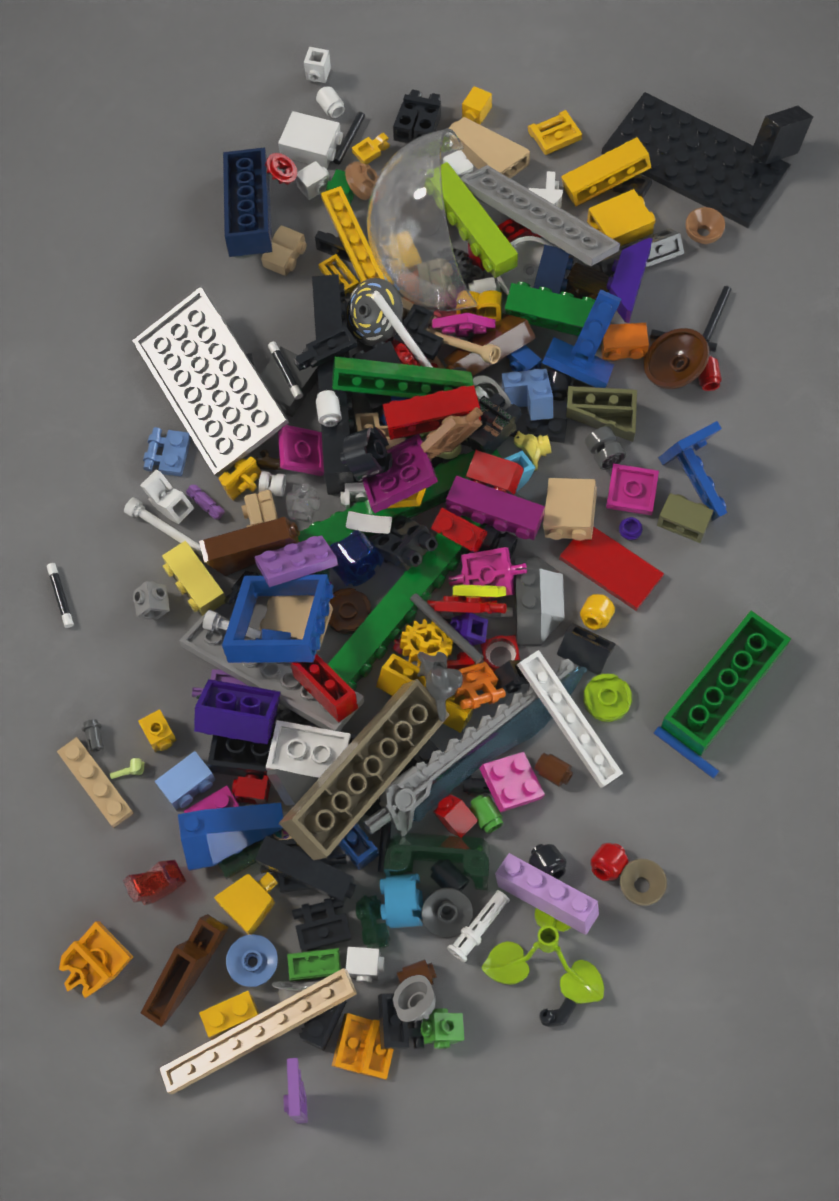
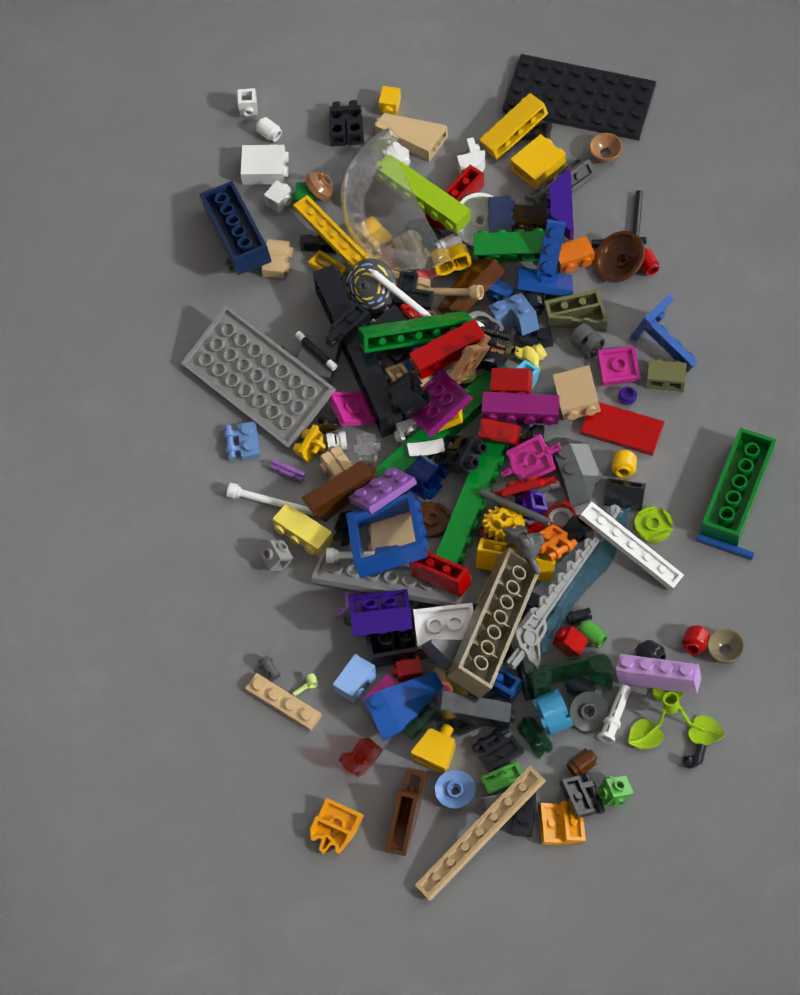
camera: 15 degrees left, 5 degrees down
(60, 595) = (199, 573): black bar -> none
(157, 731) = (318, 649): yellow brick -> none
(165, 498) = (258, 477): white brick -> none
(228, 1014) = (452, 830): yellow brick -> none
(283, 162) = (250, 188): red gear -> none
(296, 1101) = (528, 869): medium lavender wing -> none
(328, 408) = (366, 368): white brick -> none
(349, 138) = (294, 154): black bar -> none
(364, 964) = (541, 763): white brick -> none
(369, 149) = (315, 159): yellow plate -> none
(414, 999) = (588, 773): light grey piece -> none
(463, 324) = (445, 276): dark pink plate -> none
(479, 590) = (530, 472): neon yellow tile -> none
(512, 782) = (603, 605): plate -> none
(540, 216) = (476, 175): light grey plate -> none
(553, 769) = (631, 587): reddish brown brick -> none
(558, 136) = (463, 109): yellow plate -> none
(781, 134) = (642, 60): black brick -> none

